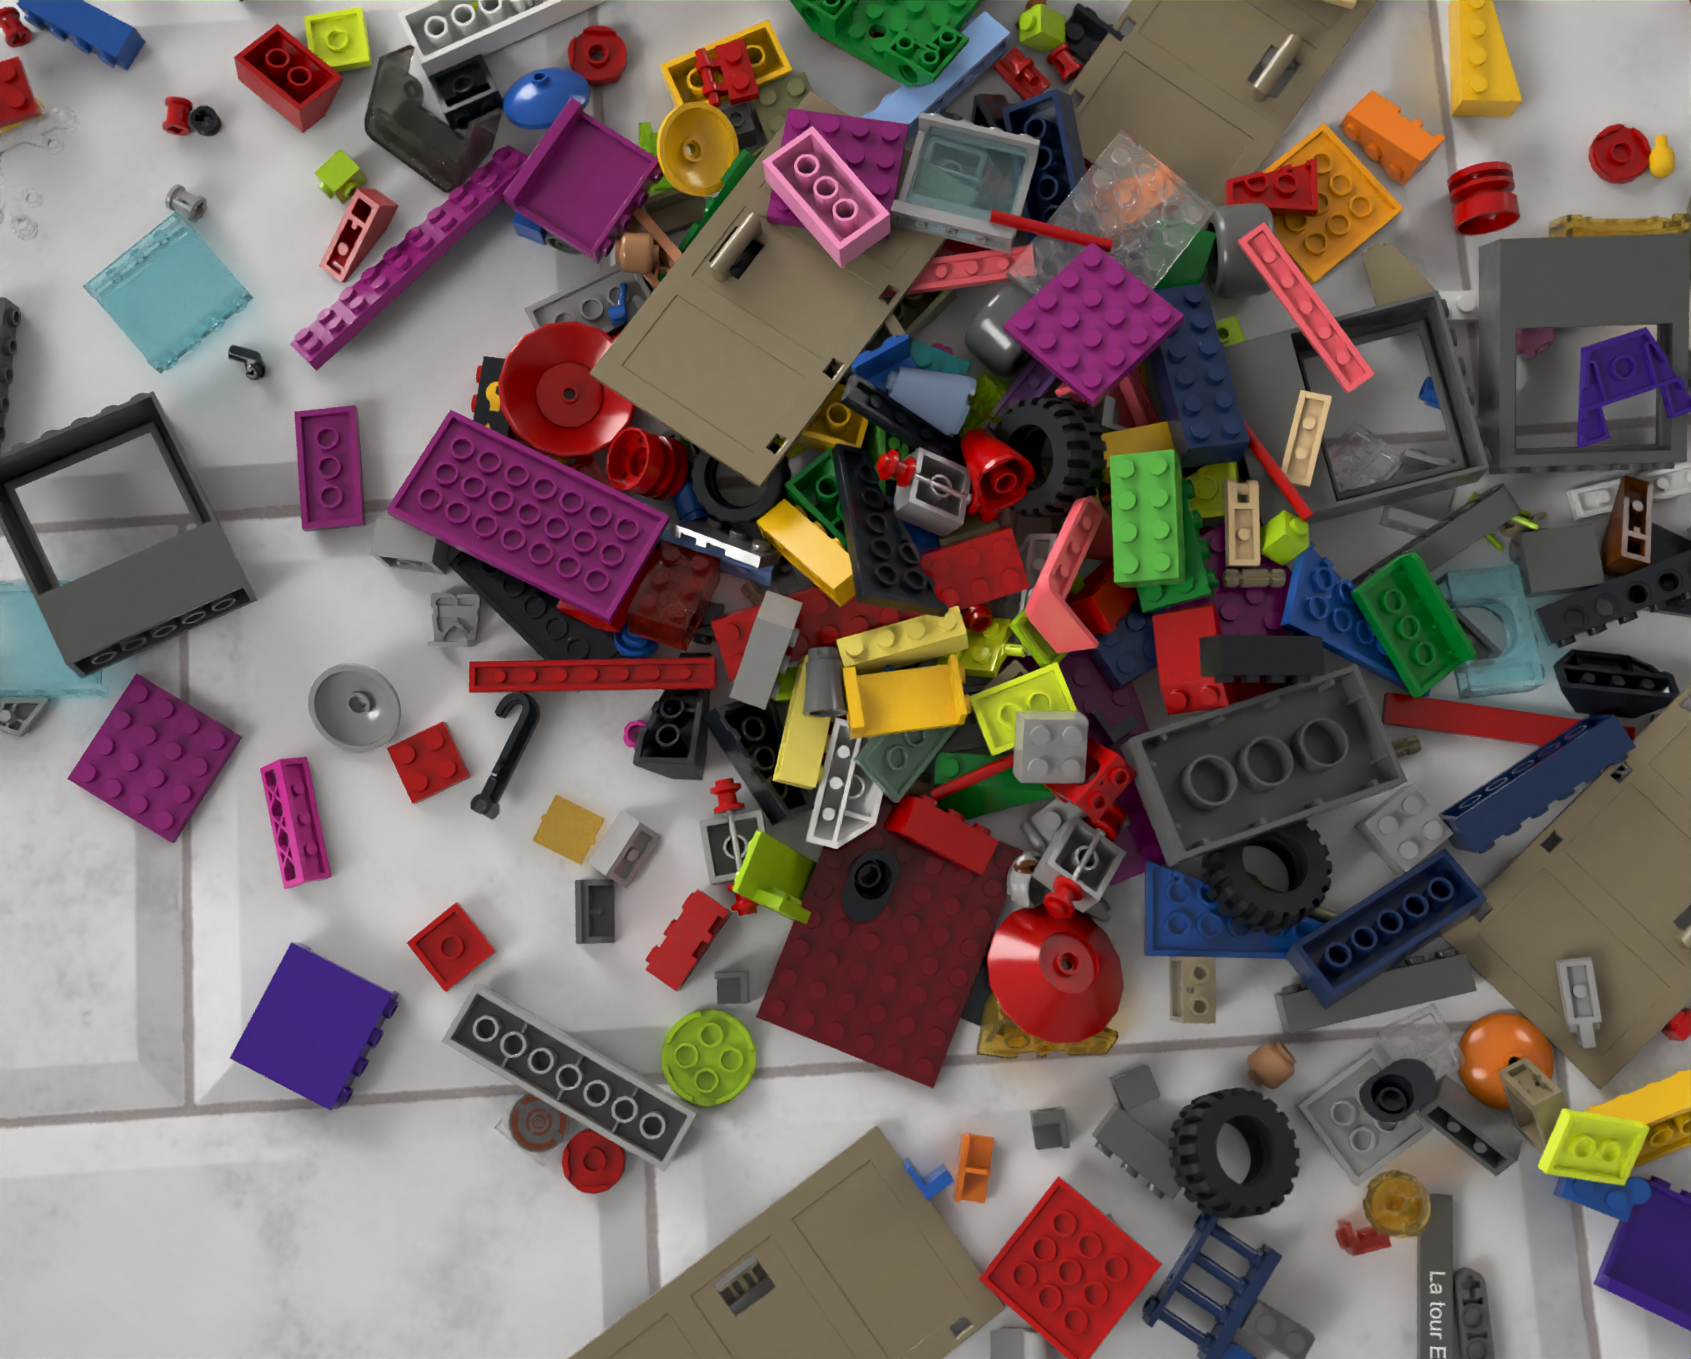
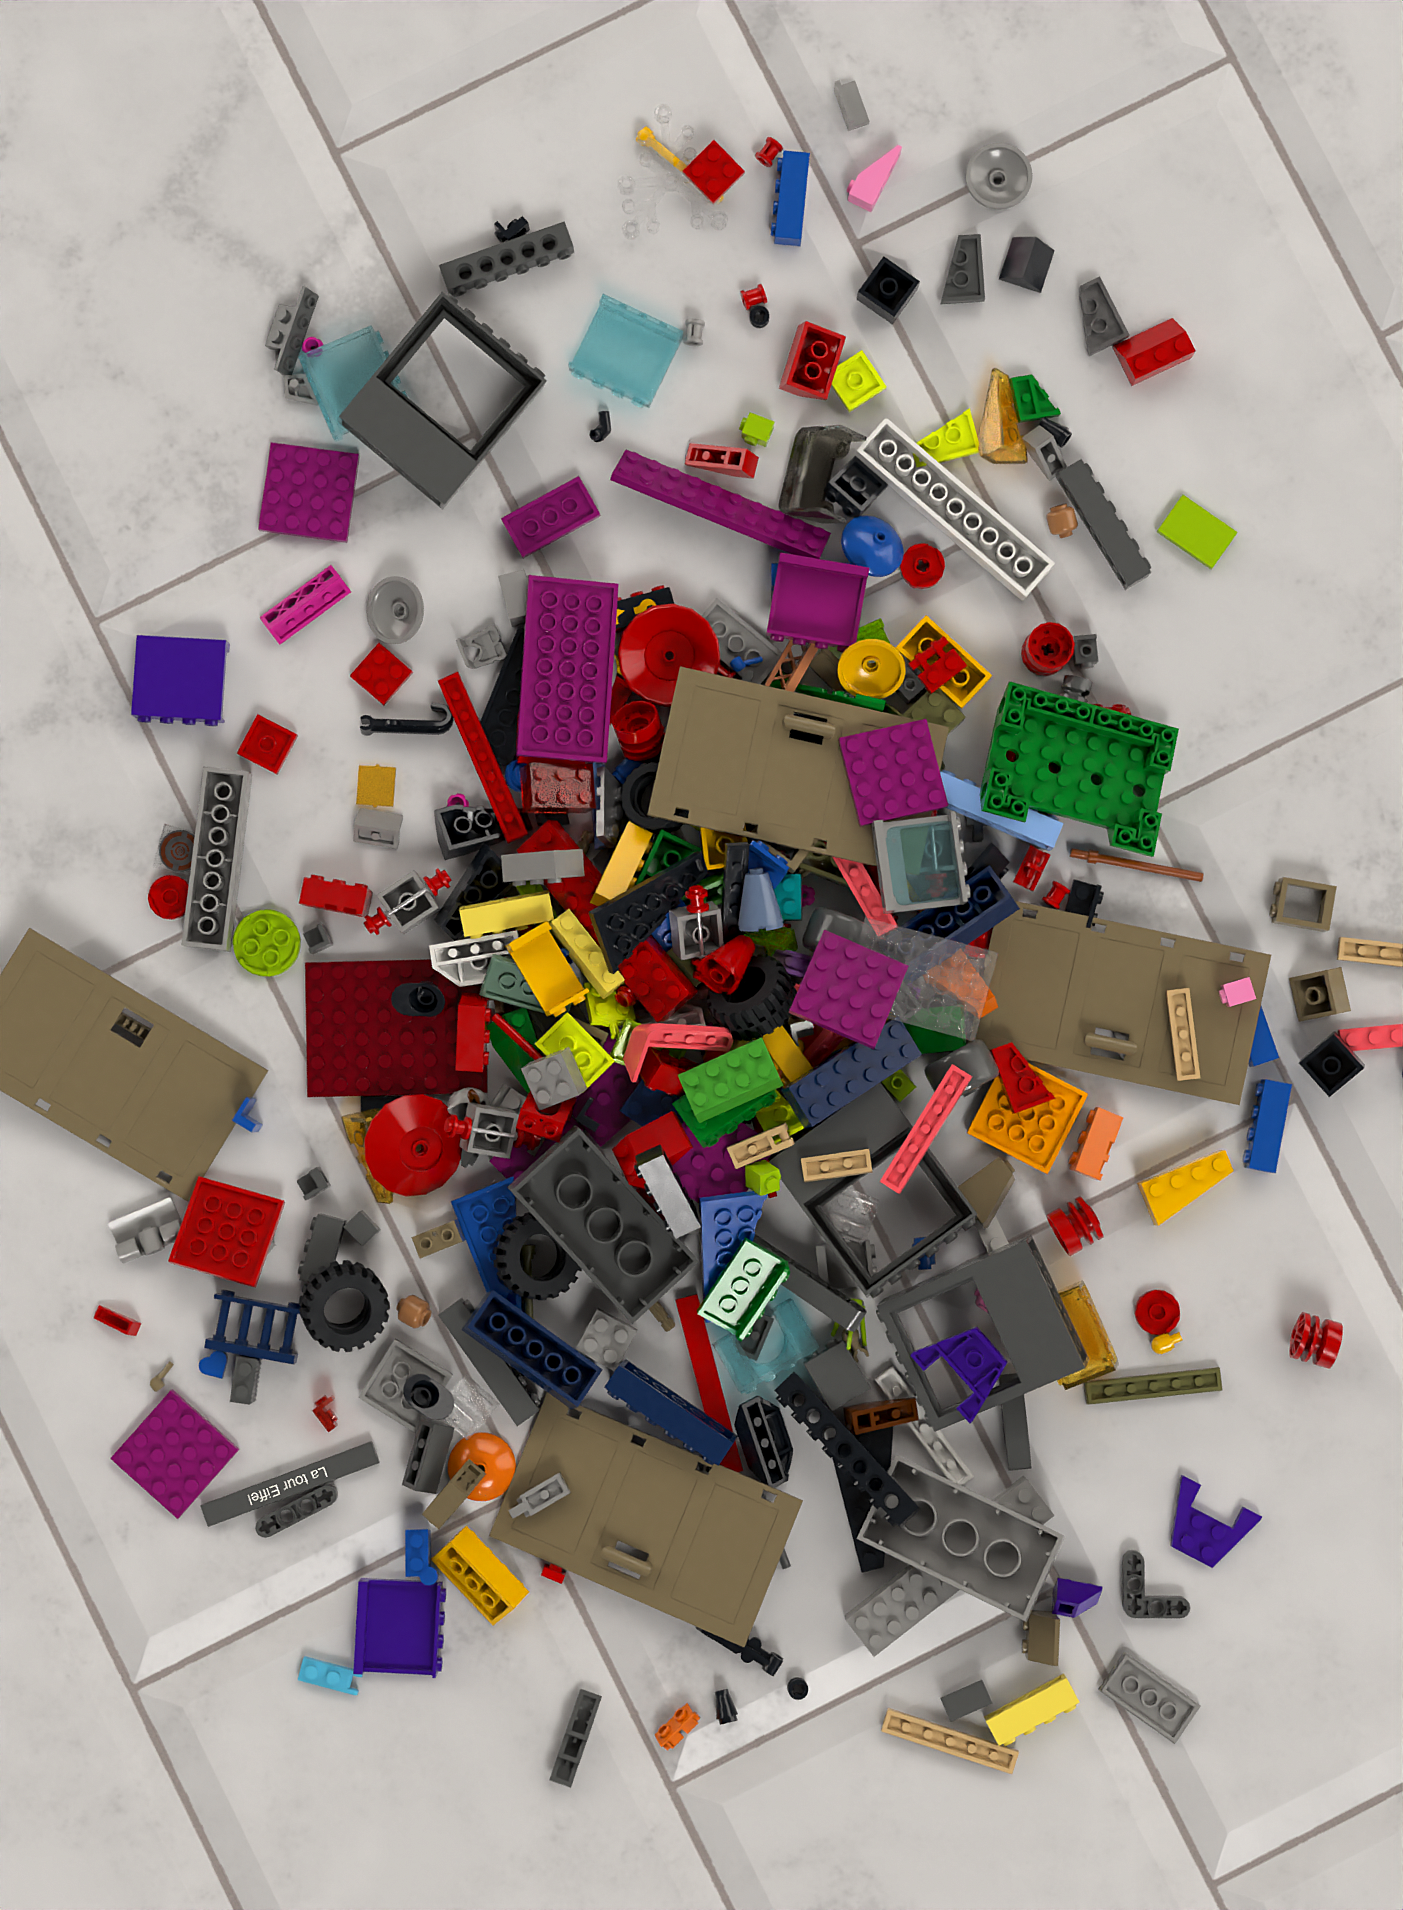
camera: 65 degrees right, 5 degrees up
(594, 911) = (329, 827): dark grey hinge -> none
(636, 252) = (782, 659): medium nougat head -> none
(775, 877) = (396, 936): lime bracket -> none
(824, 684) = (532, 913): dark grey plant -> none
(827, 196) = (862, 774): bright pink brick -> none
(973, 1168) = (267, 1144): orange panel -> none
(1041, 28) = (1072, 867): lime brick -> none
(1049, 230) = (904, 934): red bar -> none
(1254, 578) = (726, 1168): dark tan axle -> none
(1278, 476) = (805, 1152): red bar -> none
(1398, 1204) = (356, 1427): clear yellow cylinder -> none
(1593, 1147) = (442, 1533): neon yellow plate -> none

